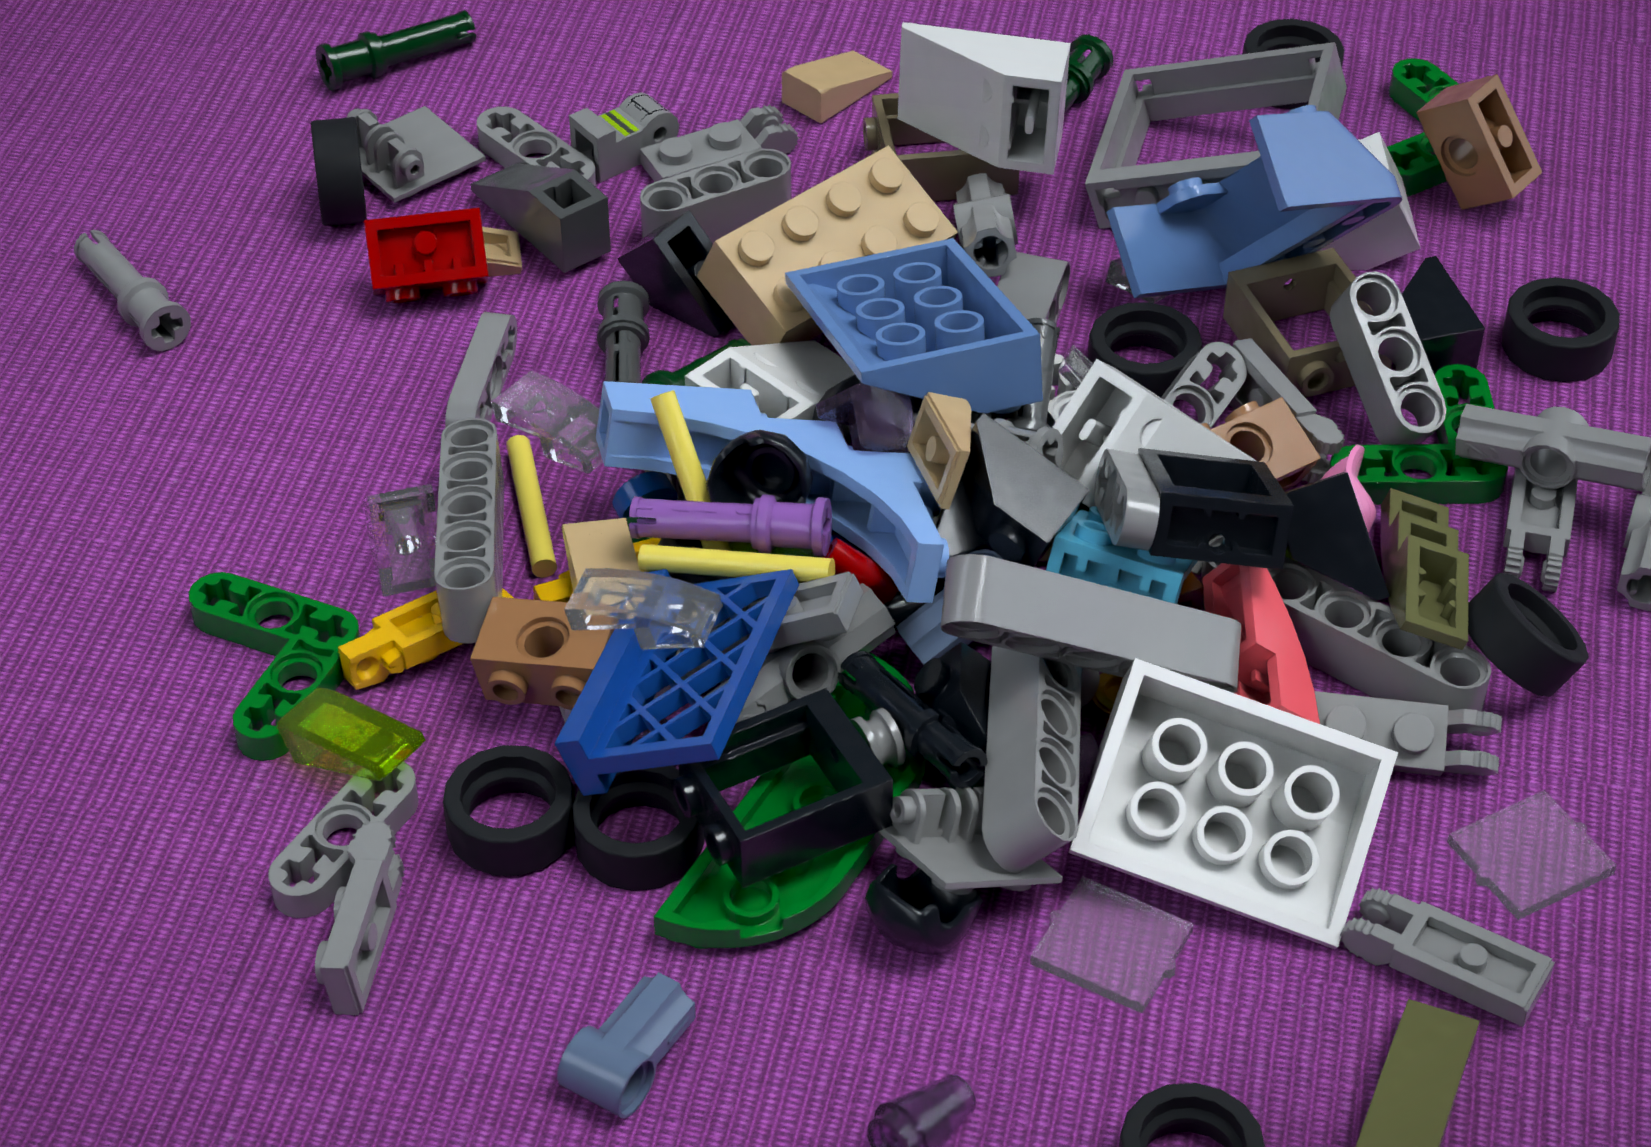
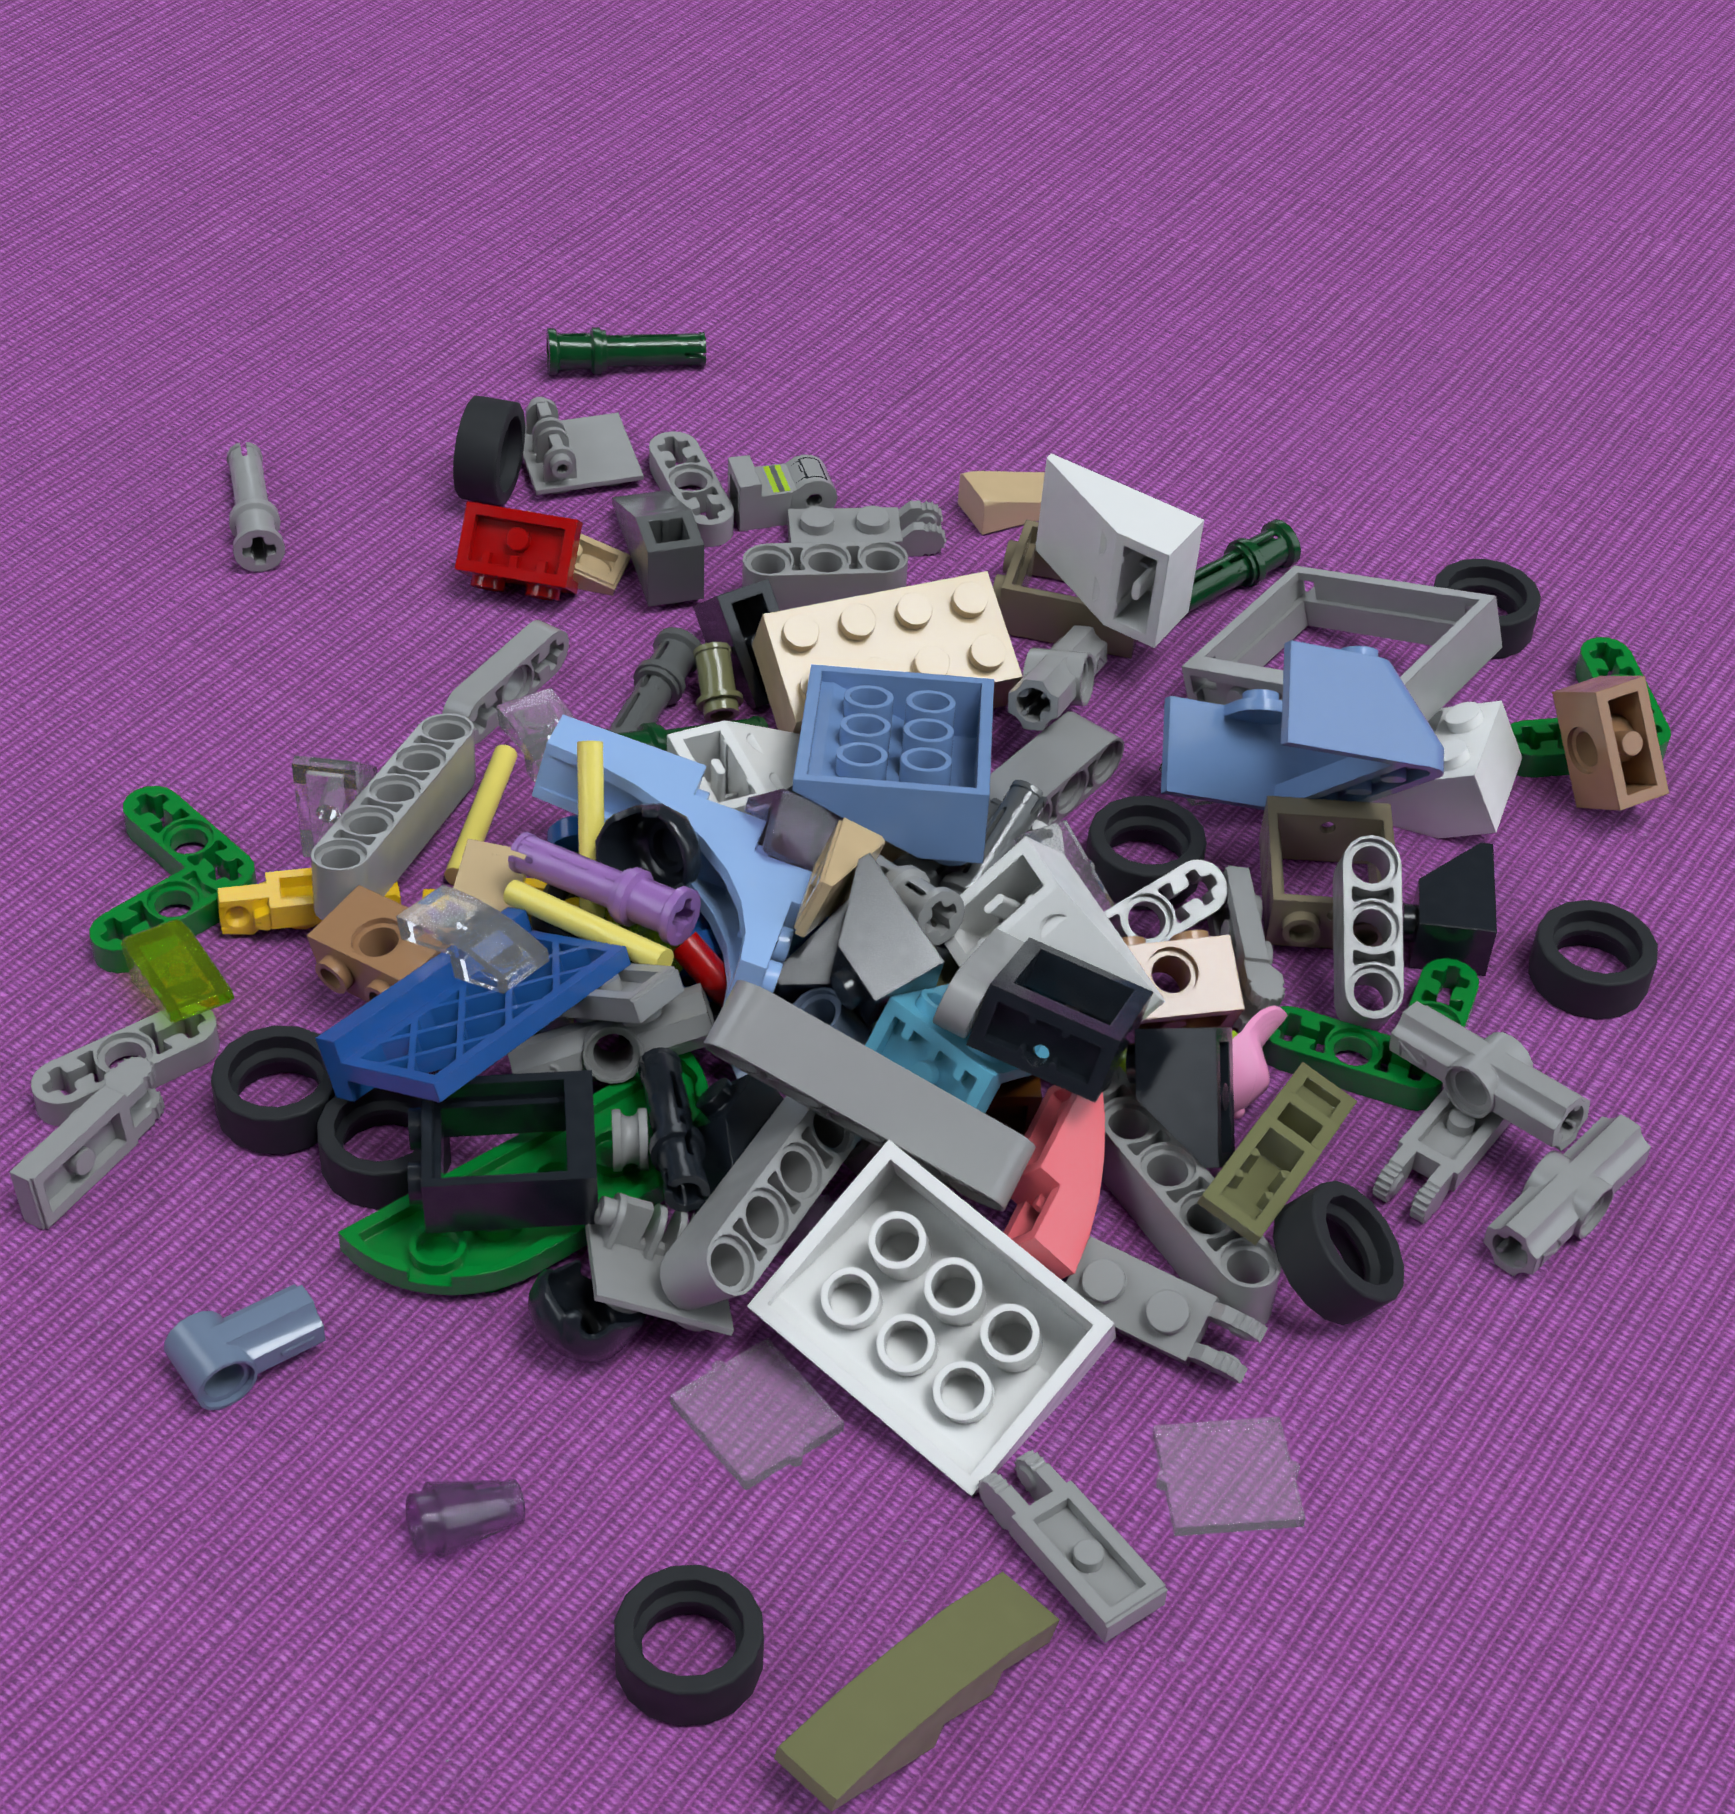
camera: 20 degrees right, 0 degrees up
(678, 320) = (717, 685): none -> olive pin

